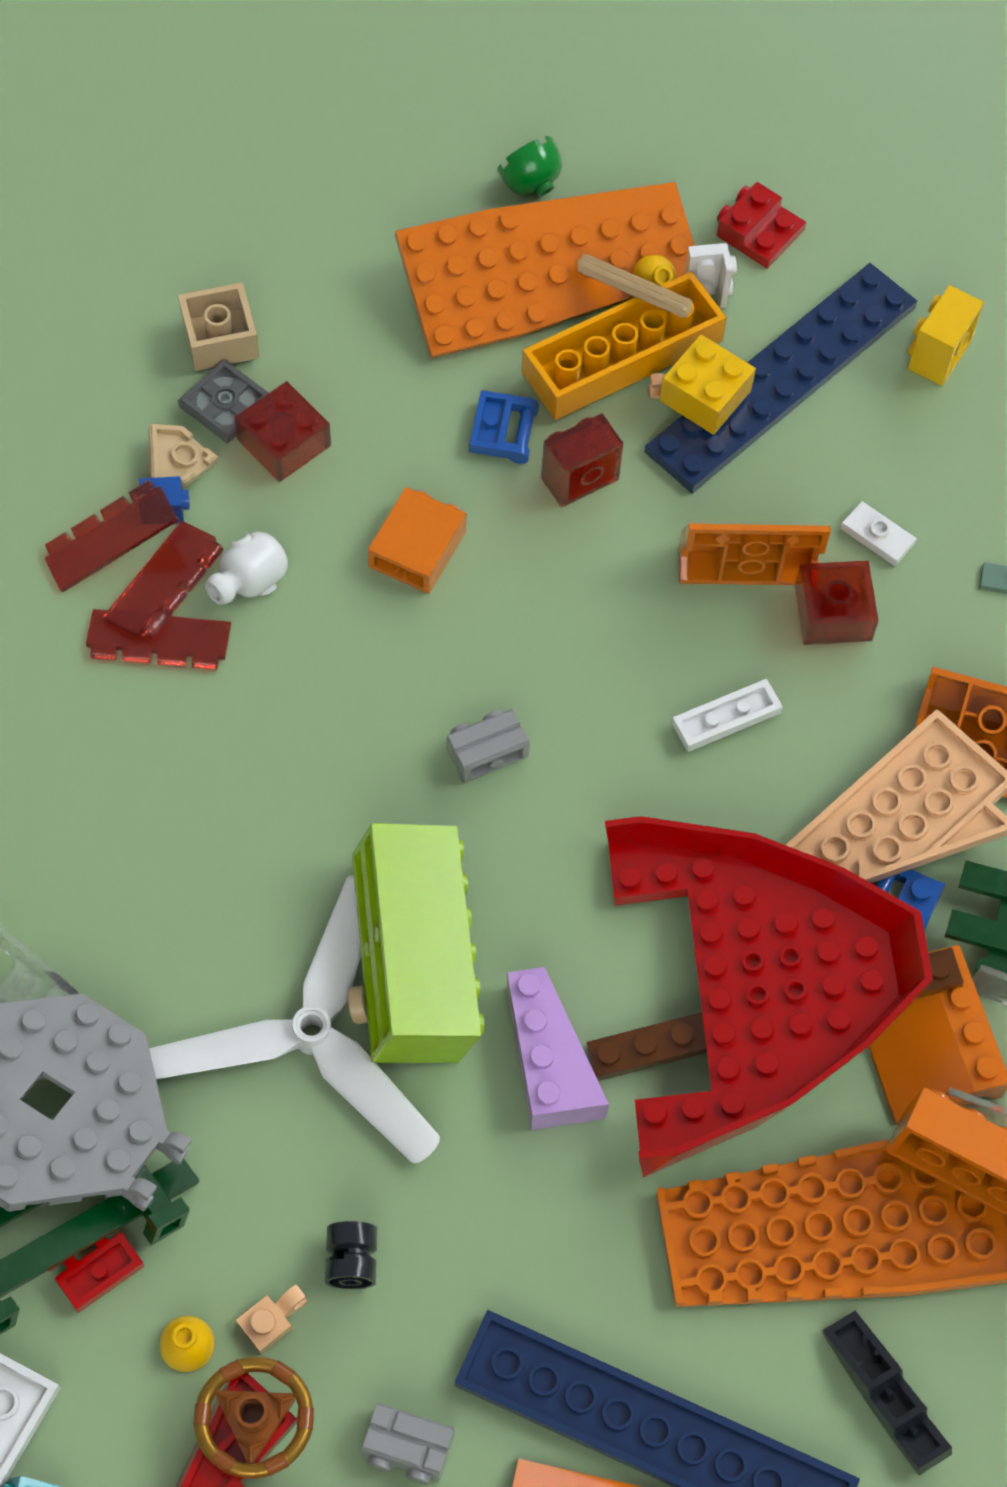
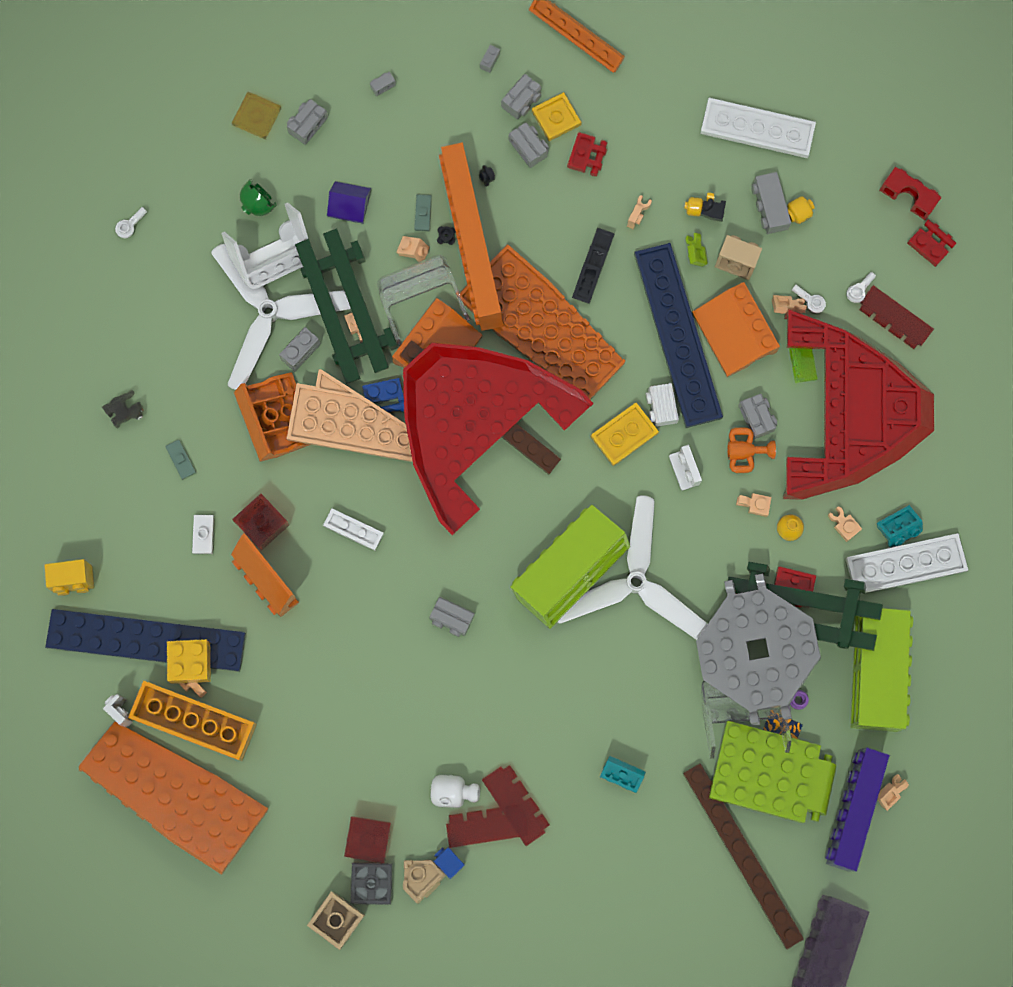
camera: 130 degrees left, 15 degrees up
(62, 788) = (622, 774): none -> teal bracket
(103, 542) = (485, 863): clear red windscreen -> none
(106, 1436) = (847, 526): none -> light nougat plate
(253, 1417) = (801, 471): dark orange piece -> none
(351, 1252) = (710, 491): black wheel -> none
(357, 1004) = (610, 573): tan tile -> none
(369, 1375) = (745, 450): none -> orange piece
(417, 539) = (373, 730): orange brick -> none
(420, 1250) = (685, 468): none -> white bracket
(492, 426) = (282, 749): blue plate -> none
(532, 168) = (117, 850): green cylinder -> none
(552, 1063) = (570, 479): lavender wedge -> none
(554, 1302) = (662, 405): none -> white brick
(556, 1205) = (624, 434): none -> yellow plate
(581, 459) = (275, 687): clear red brick -> none
(635, 285) = (160, 735): tan axle -> none
(655, 269) = (139, 737): yellow brick -> none
(759, 224) = (62, 716): red plate -> none

